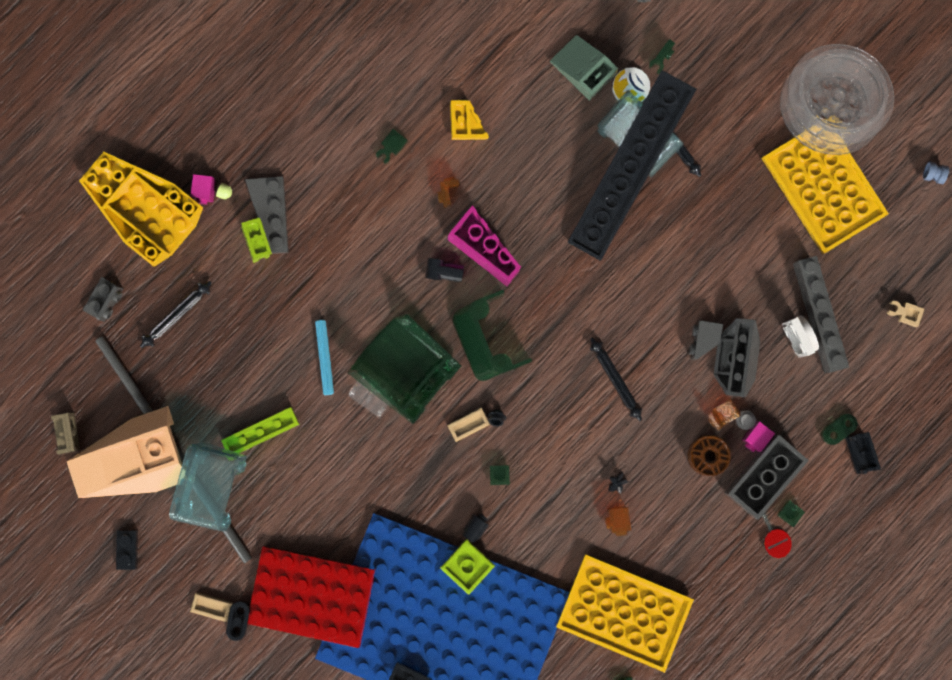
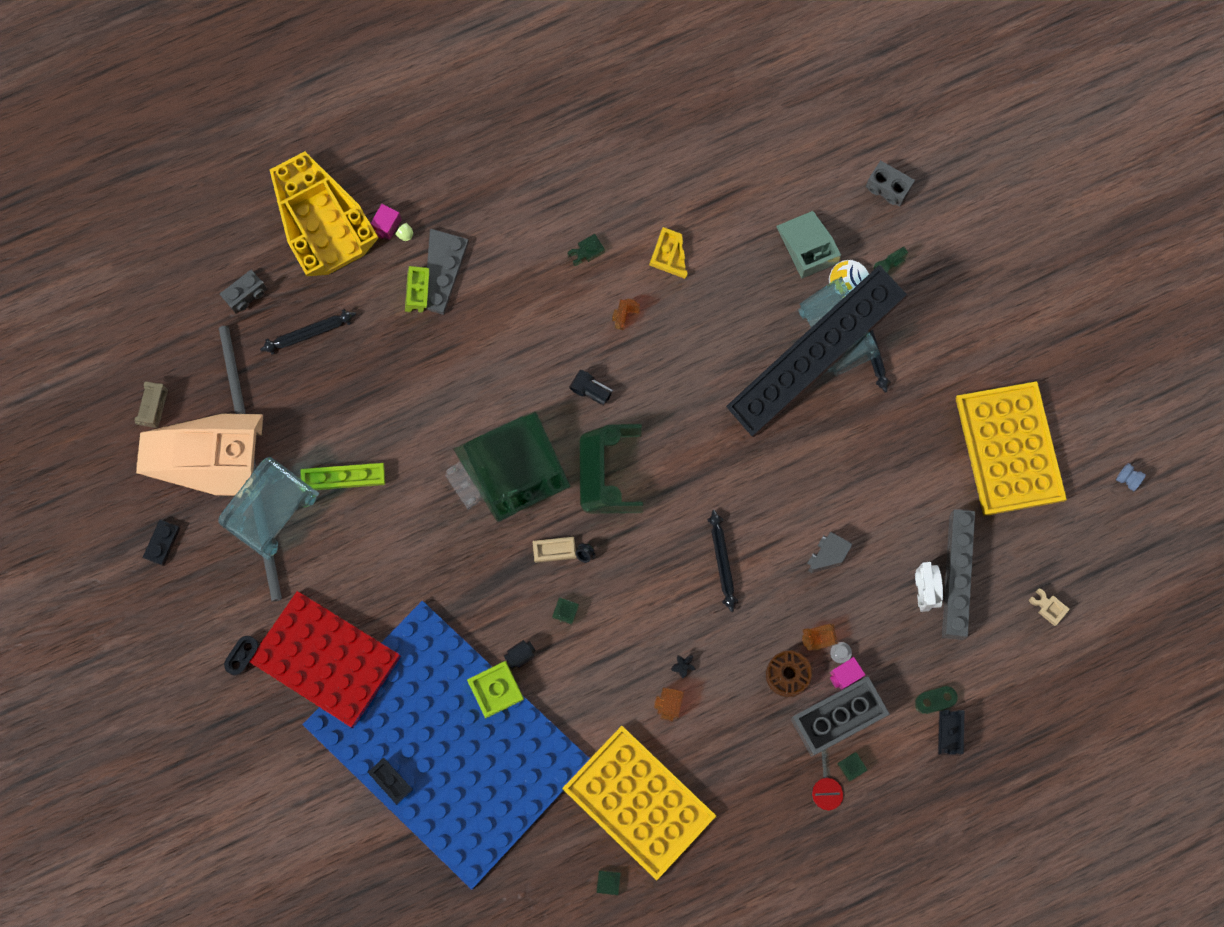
camera: 20 degrees right, 10 degrees down
(211, 607) = (219, 631): tan tile -> none
(324, 357) = (436, 428): medium azure axle -> none
(483, 246) = (638, 377): dark pink wedge -> none
(738, 357) = (856, 584): dark grey wedge -> none
(866, 87) = (1064, 336): clear wheel -> none

